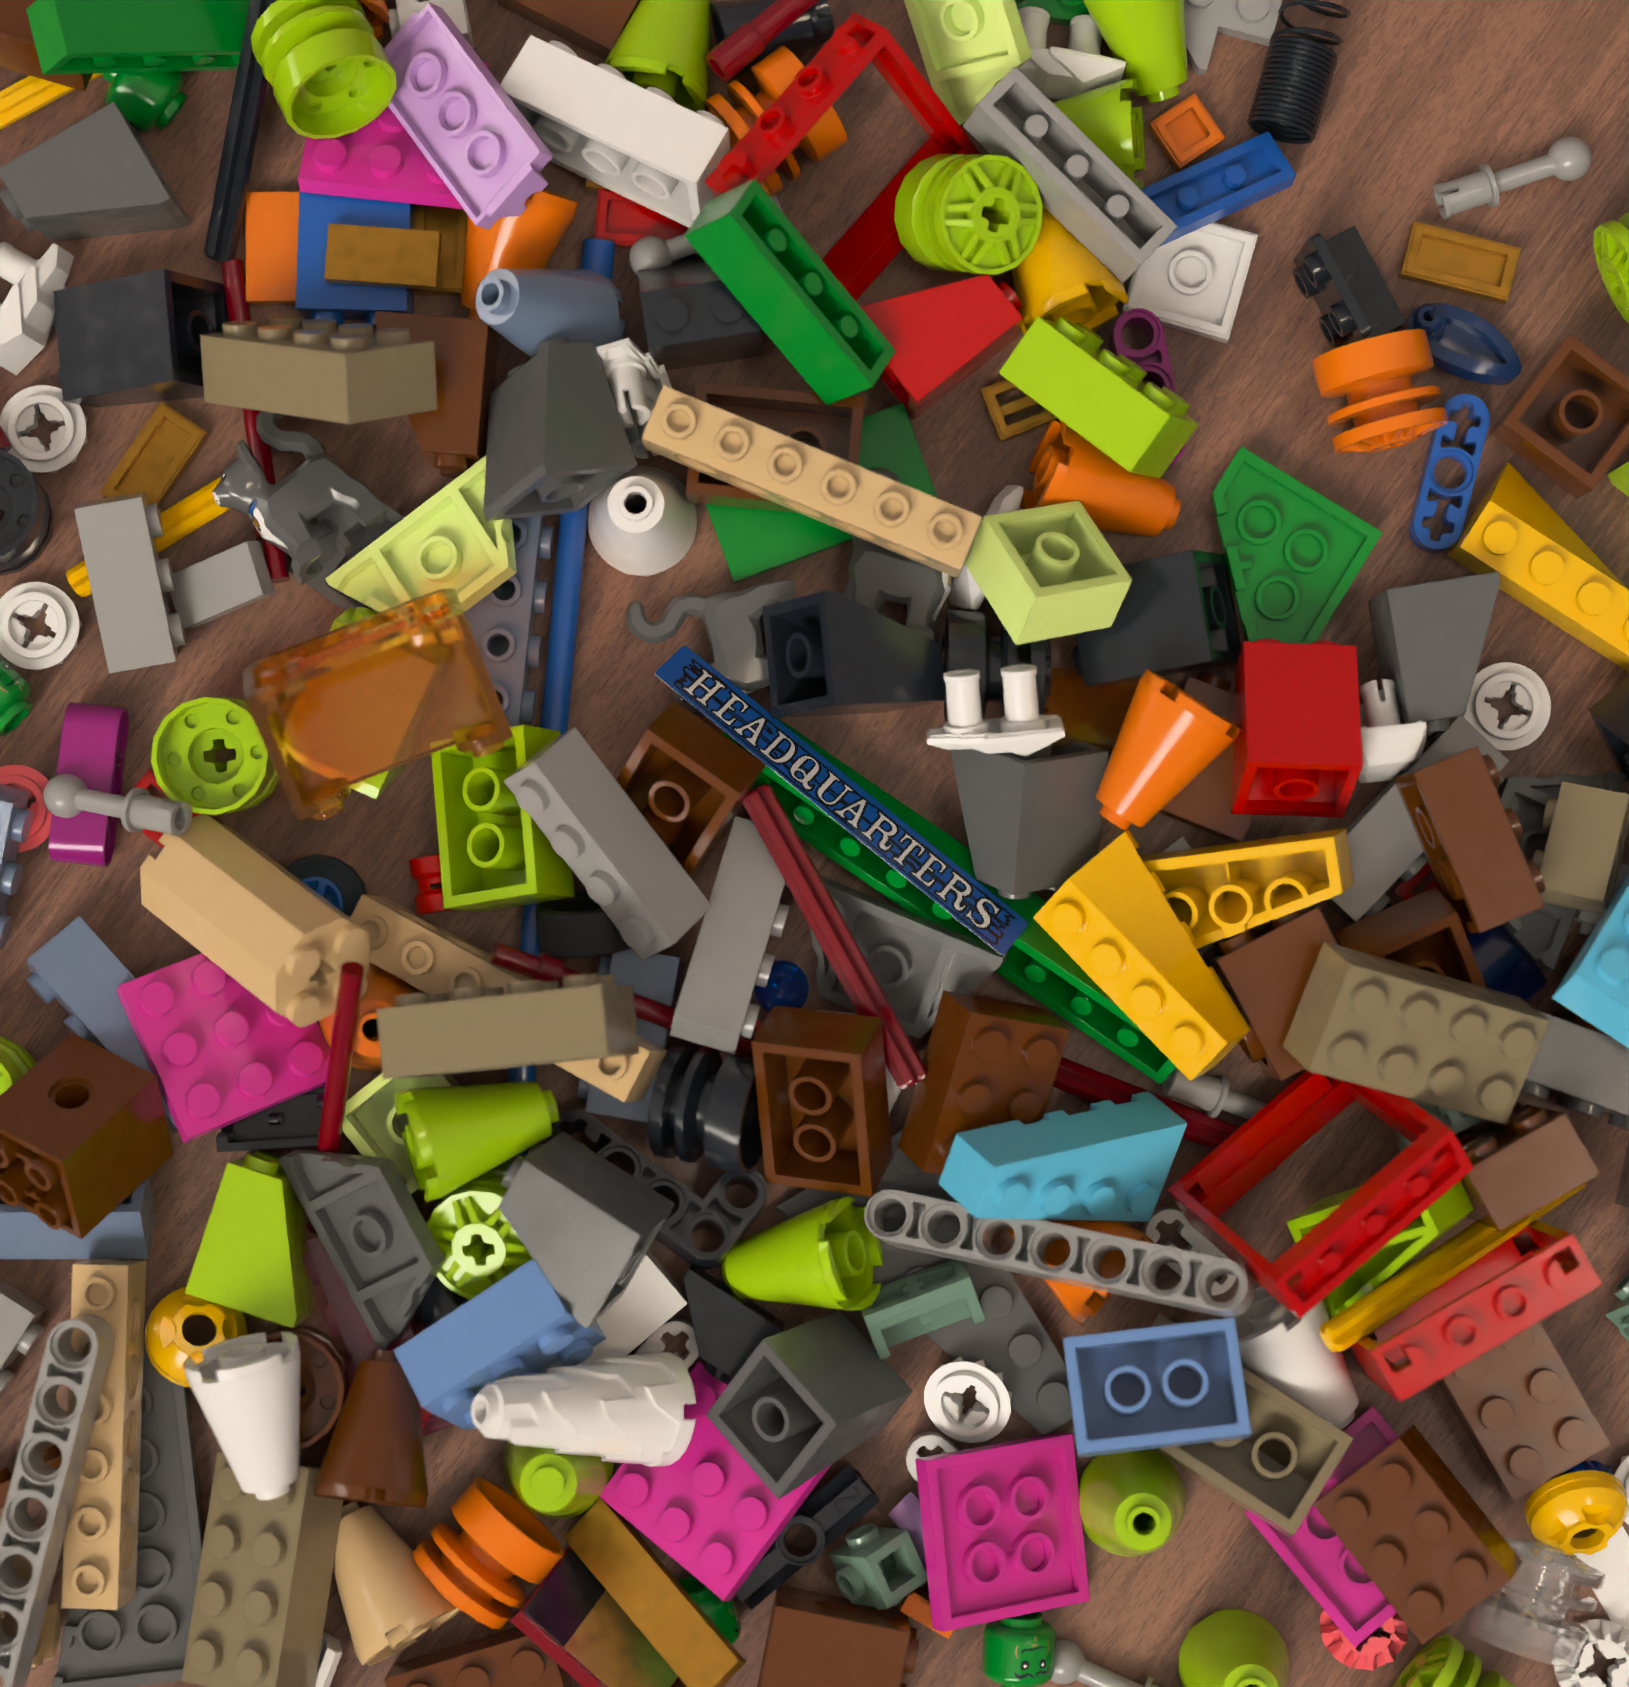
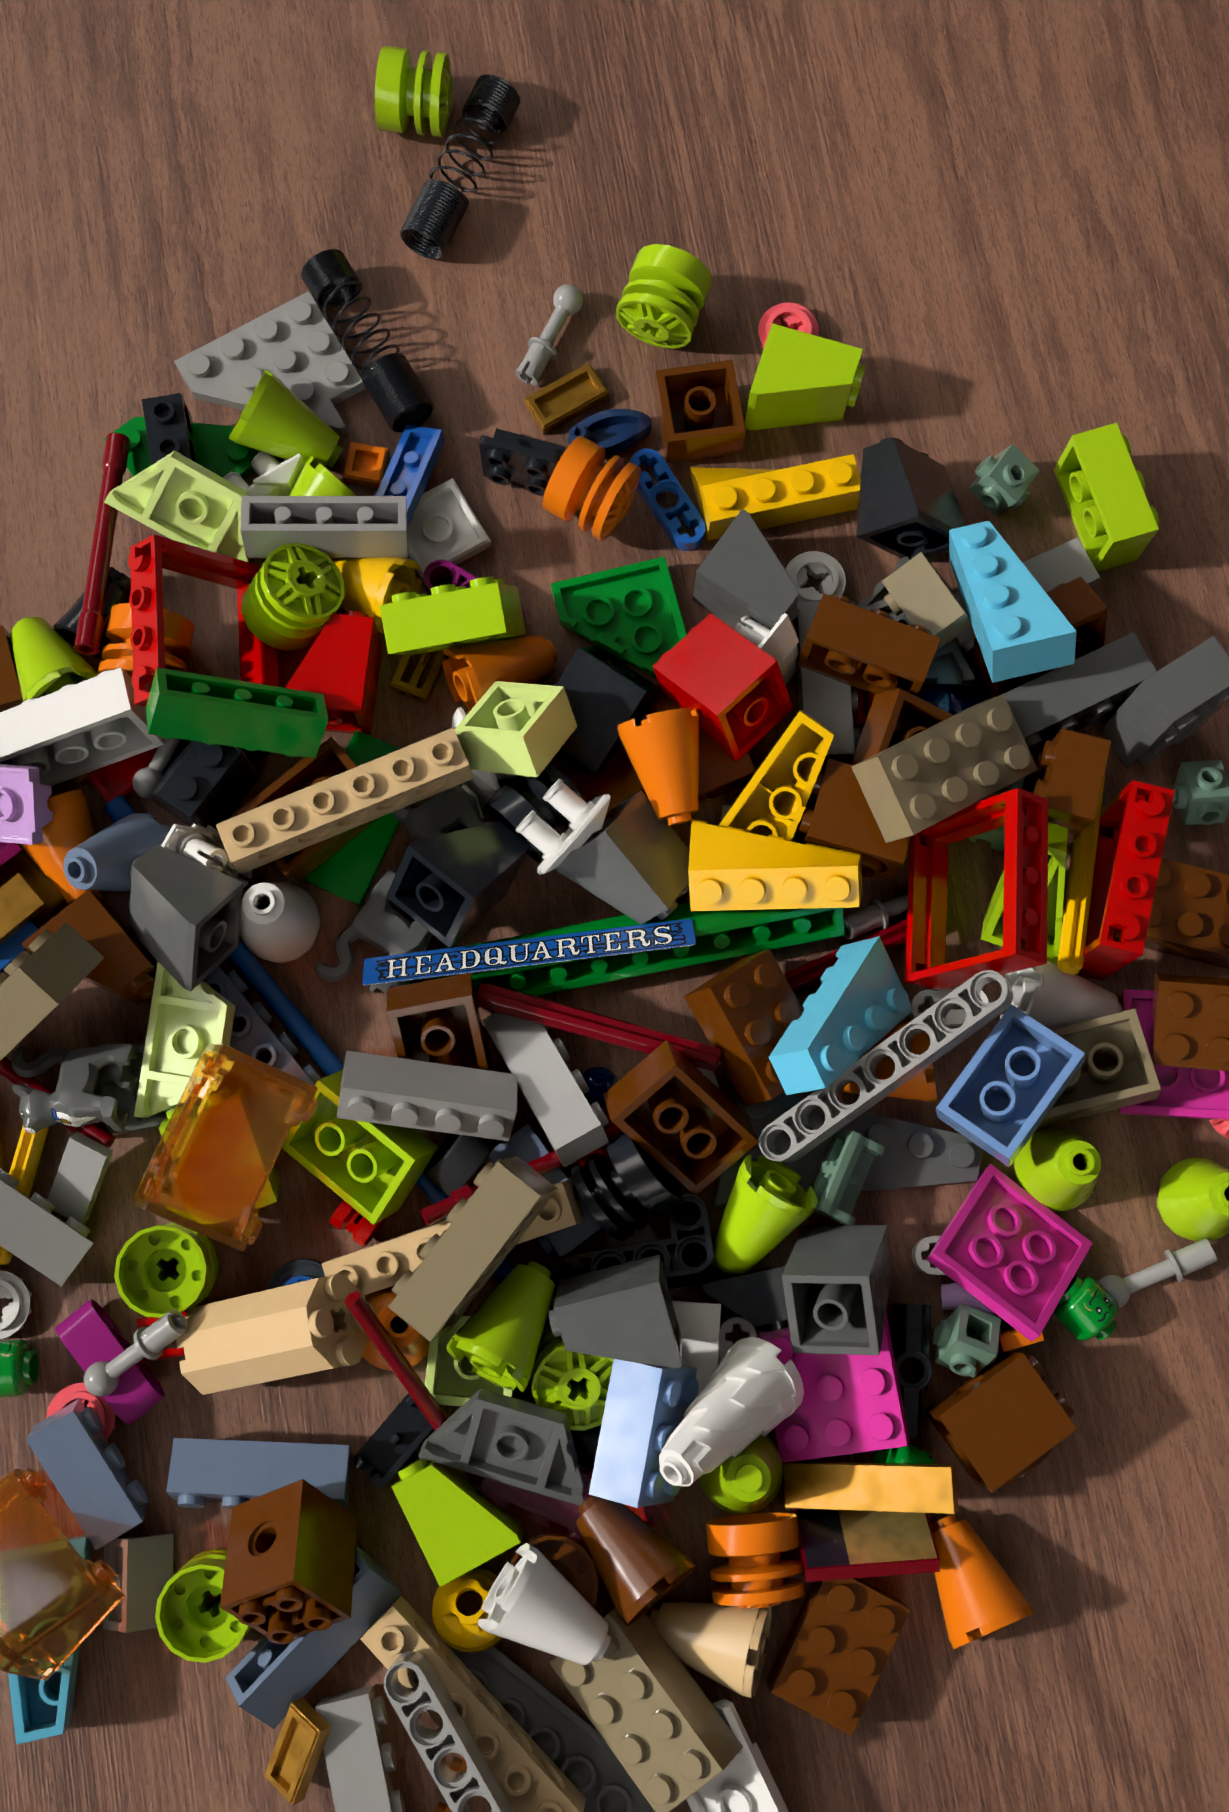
camera: 45 degrees left, 10 degrees down
(218, 1046) = (323, 1426): dark pink plate -> none
(908, 957) = (647, 999): dark grey wing -> none
(945, 1405) = (938, 1204): white gear -> none

